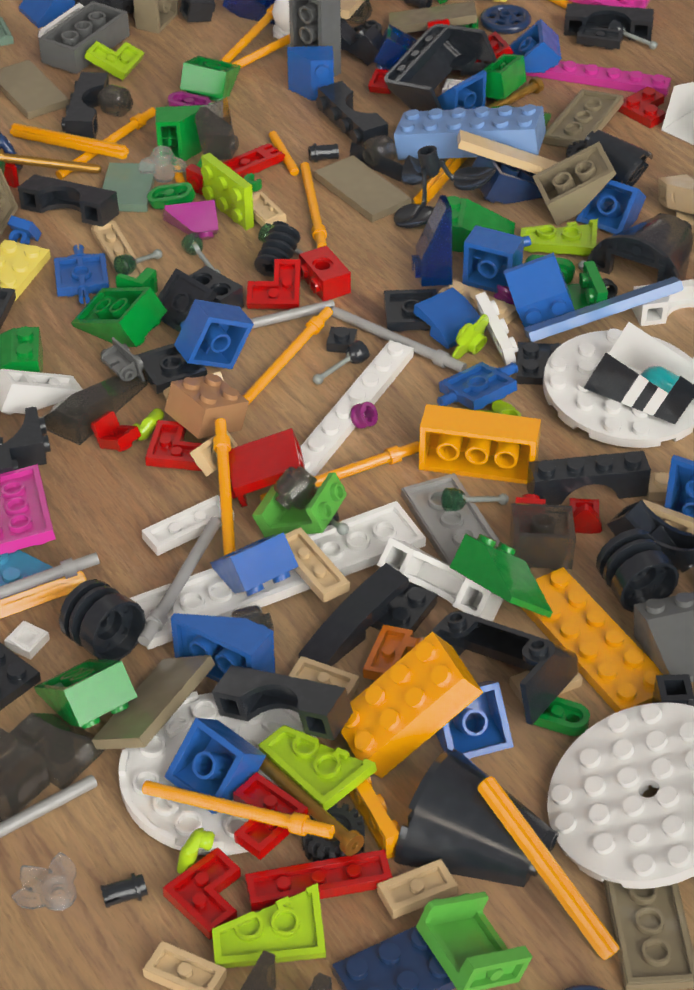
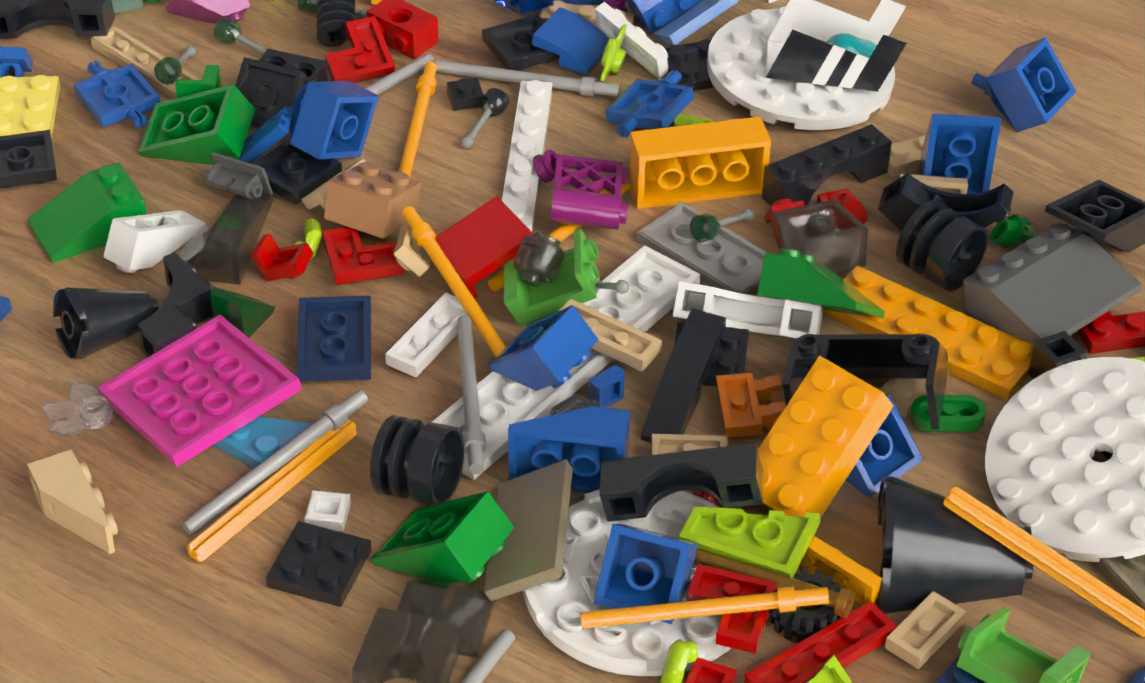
camera: 25 degrees left, 0 degrees up
(59, 466) = (240, 310): none -> dark green slope
(115, 507) = (334, 338): none -> dark blue plate
(161, 334) = (266, 135): none -> blue tile
(290, 608) = (607, 386): none -> blue tile
(370, 455) = (585, 204): none -> magenta piece

